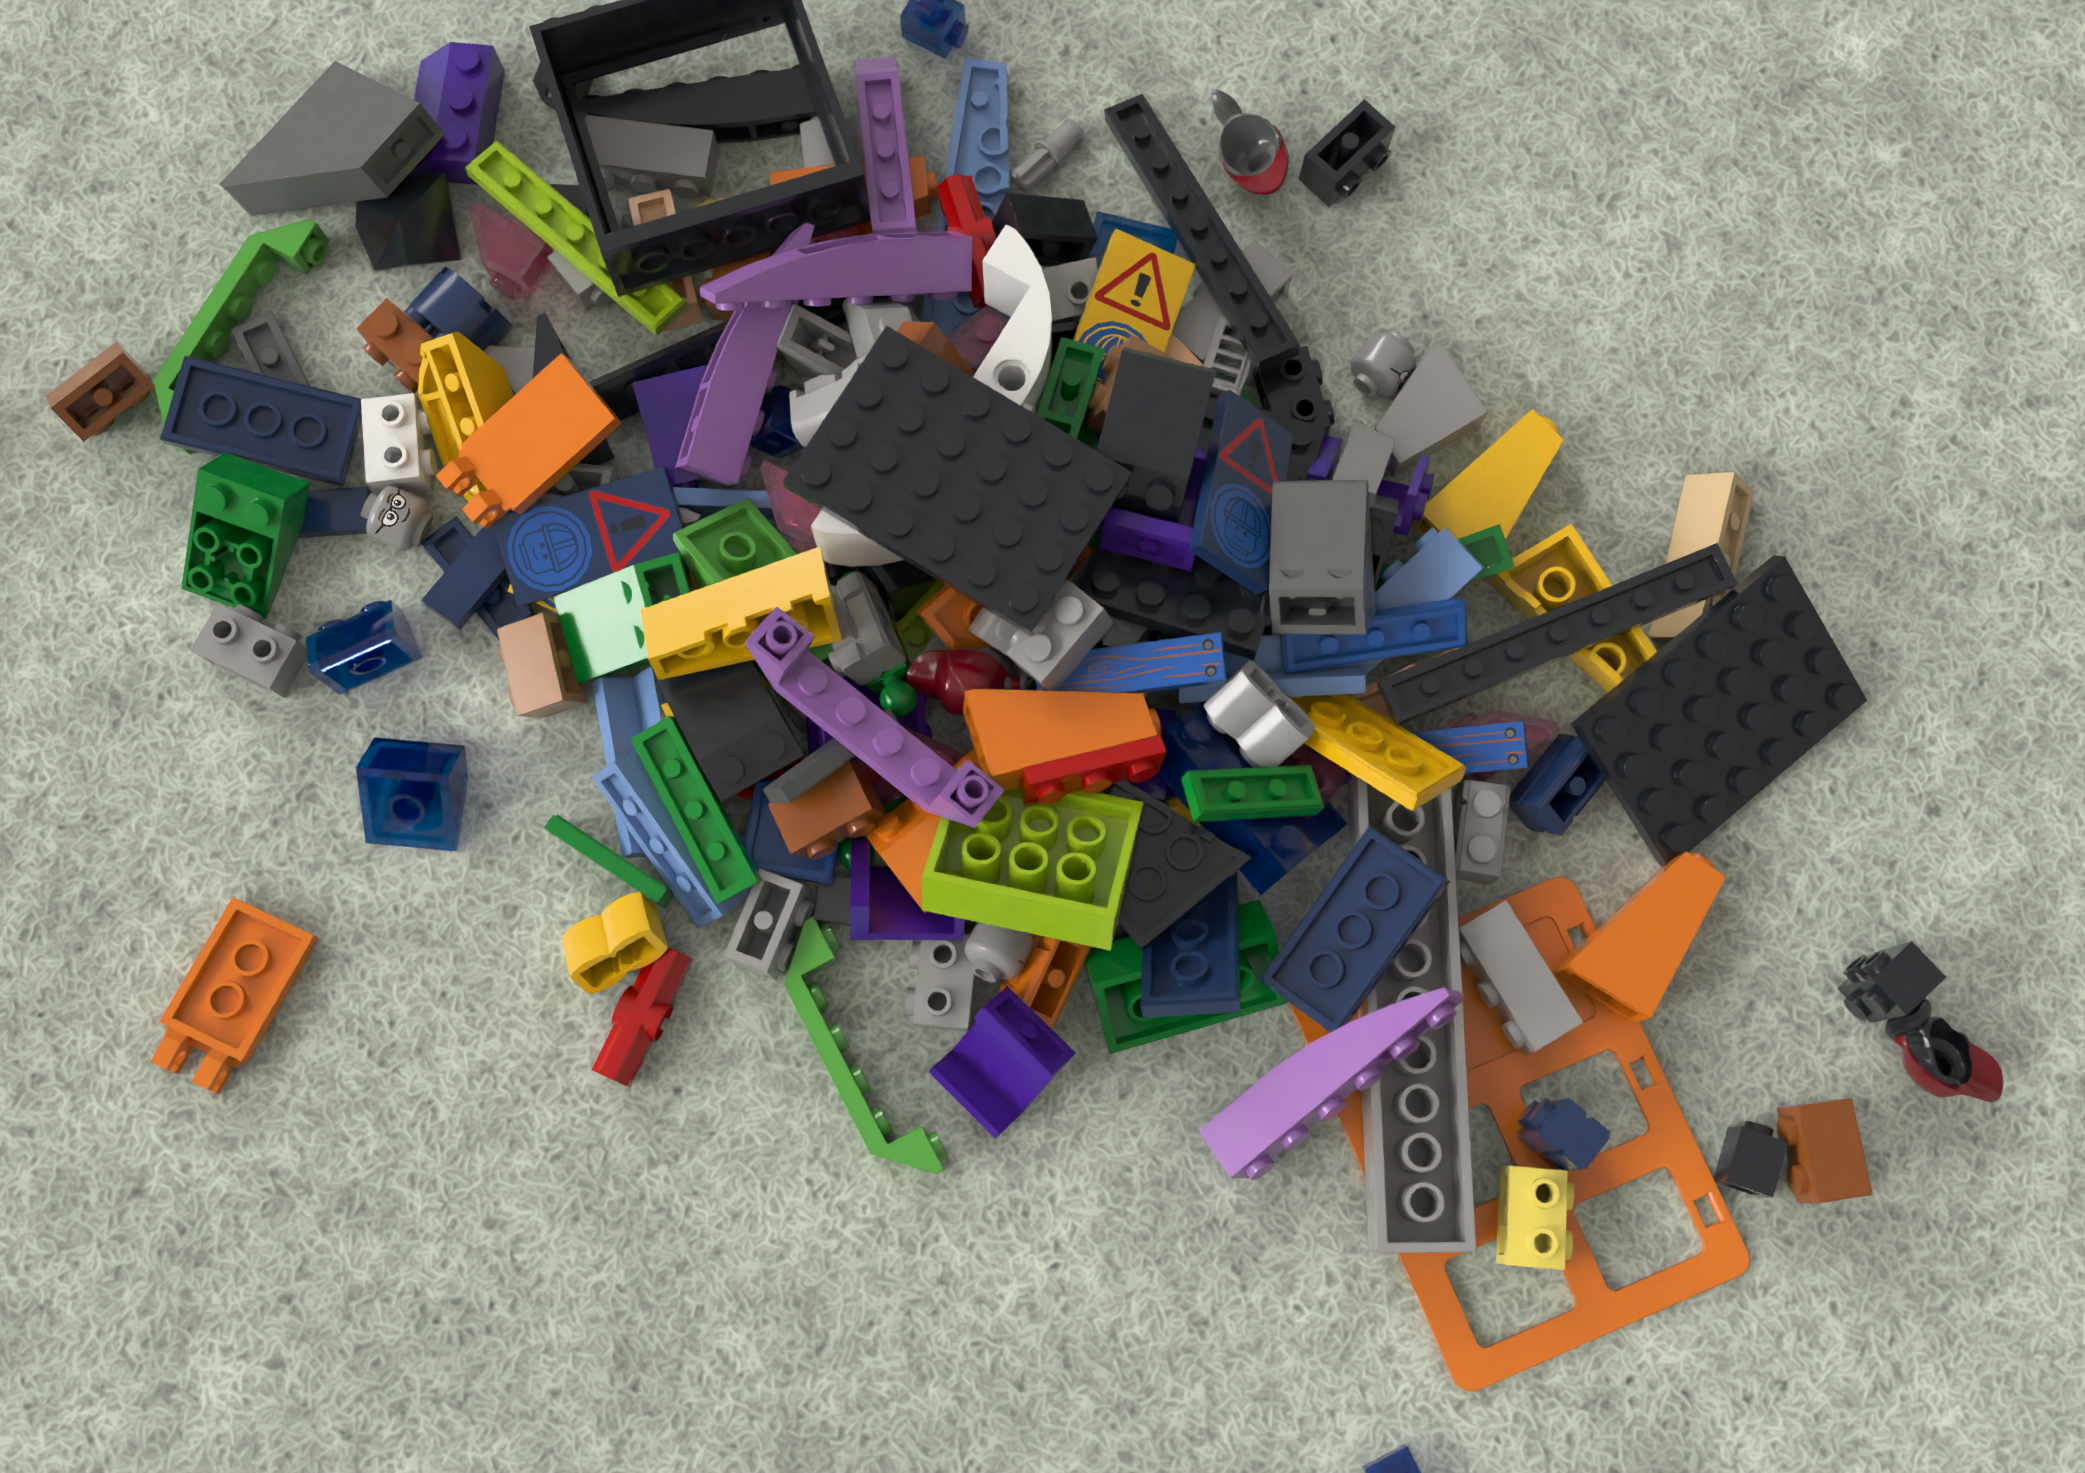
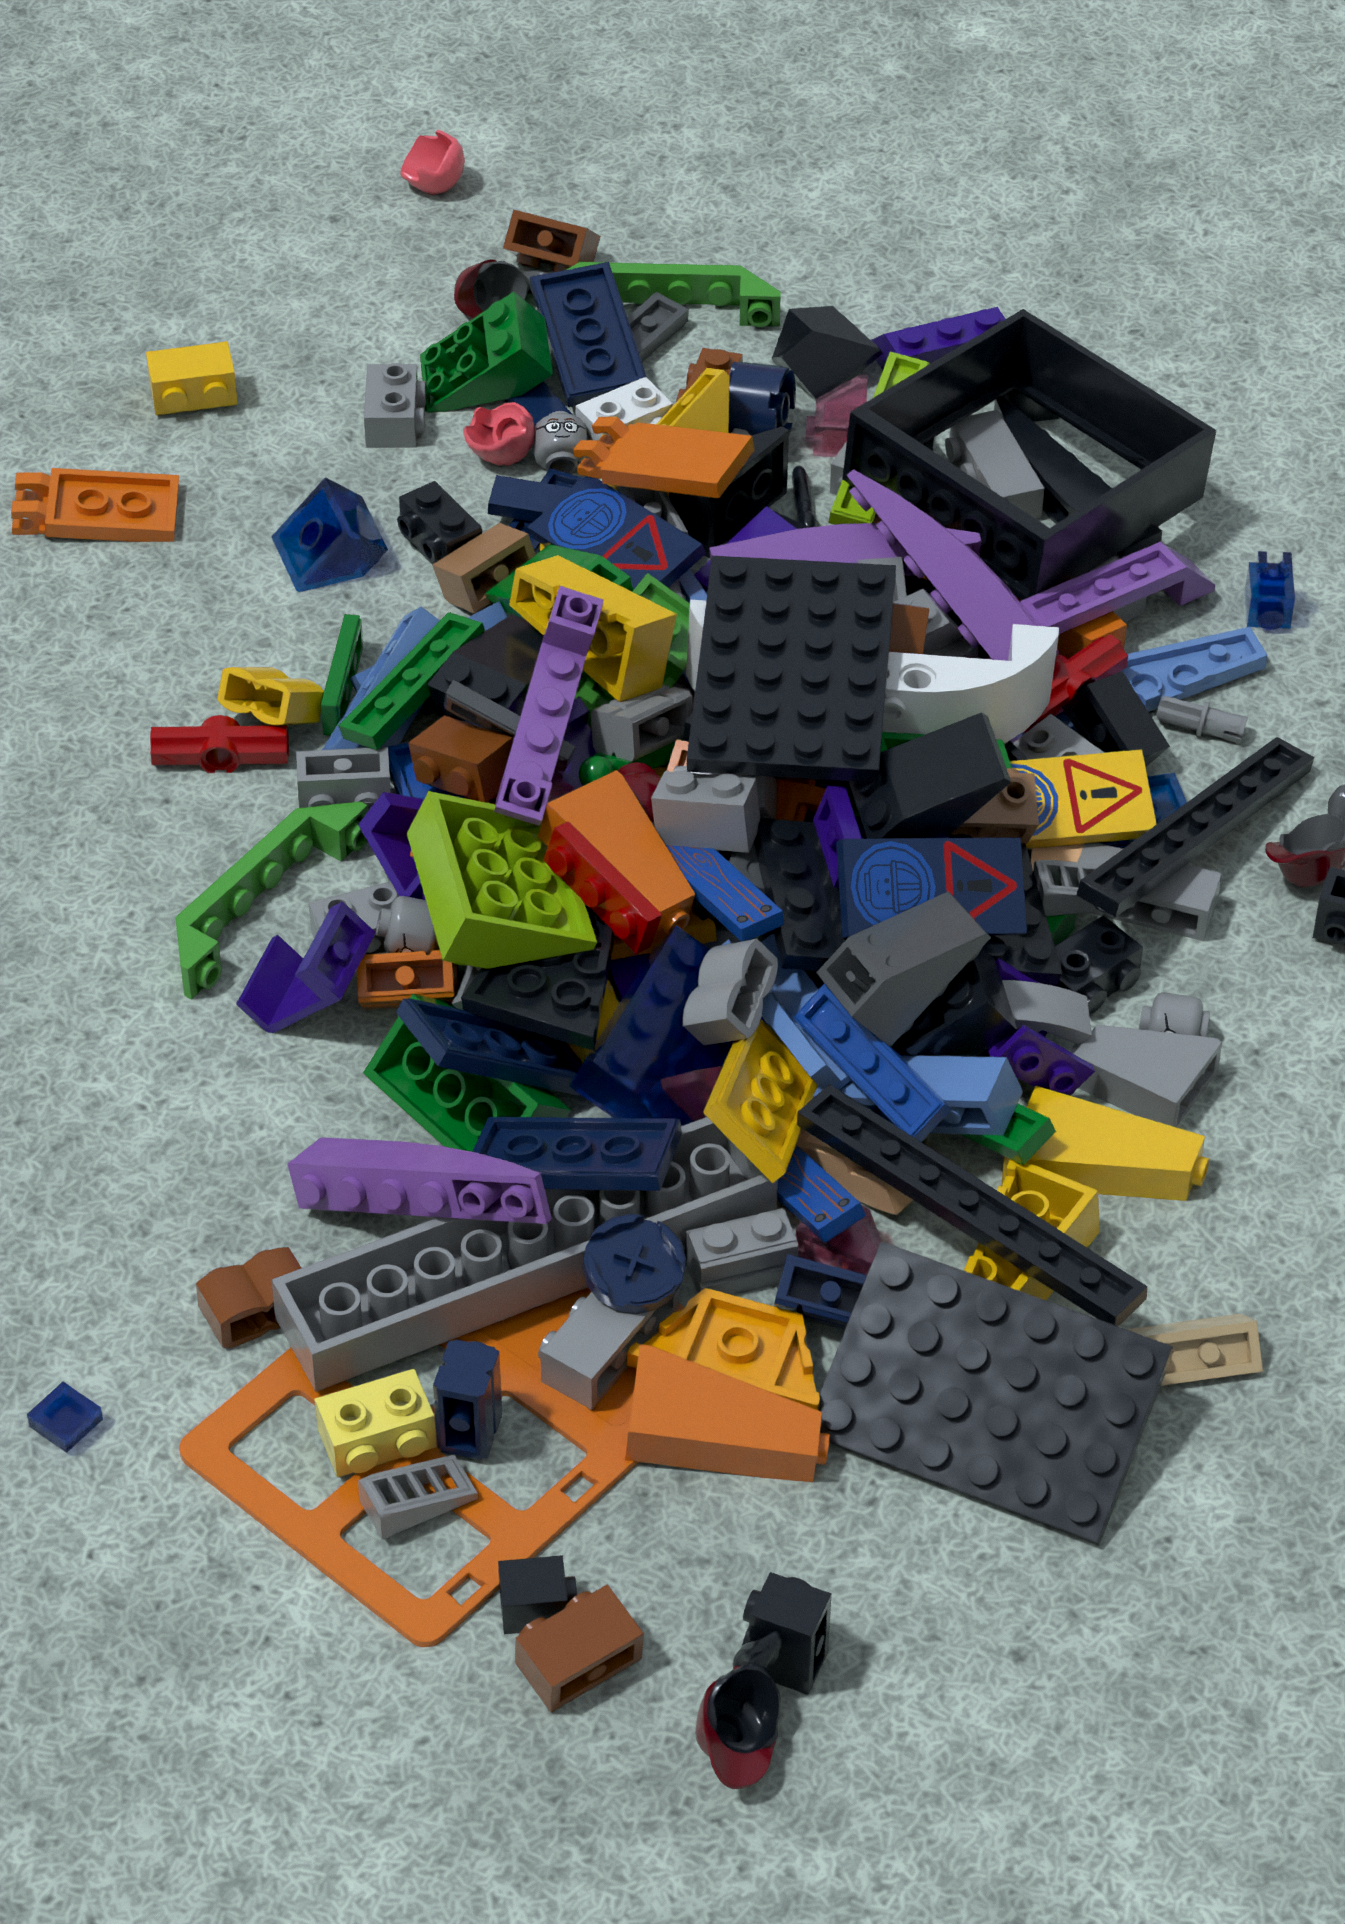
camera: 65 degrees right, 30 degrees down
(101, 827) = (191, 378): none -> yellow brick
(138, 477) = (490, 282): none -> dark grey hair
(334, 147) = (852, 279): dark grey slope -> none
(356, 567) = (501, 434): none -> coral hair
(361, 647) = (427, 455): clear blue slope -> none
(459, 684) = (435, 522): none -> black brick
(613, 348) = (803, 497): none -> black piece
(1252, 793) = (651, 1004): green tile -> none
(1338, 1260) = (240, 1297): none -> dark orange brick
(1493, 935) = (633, 1264): none -> dark blue tile
(1576, 885) = (741, 1341): none -> light orange wing
(1629, 1227) = (406, 1512): none -> light grey slope

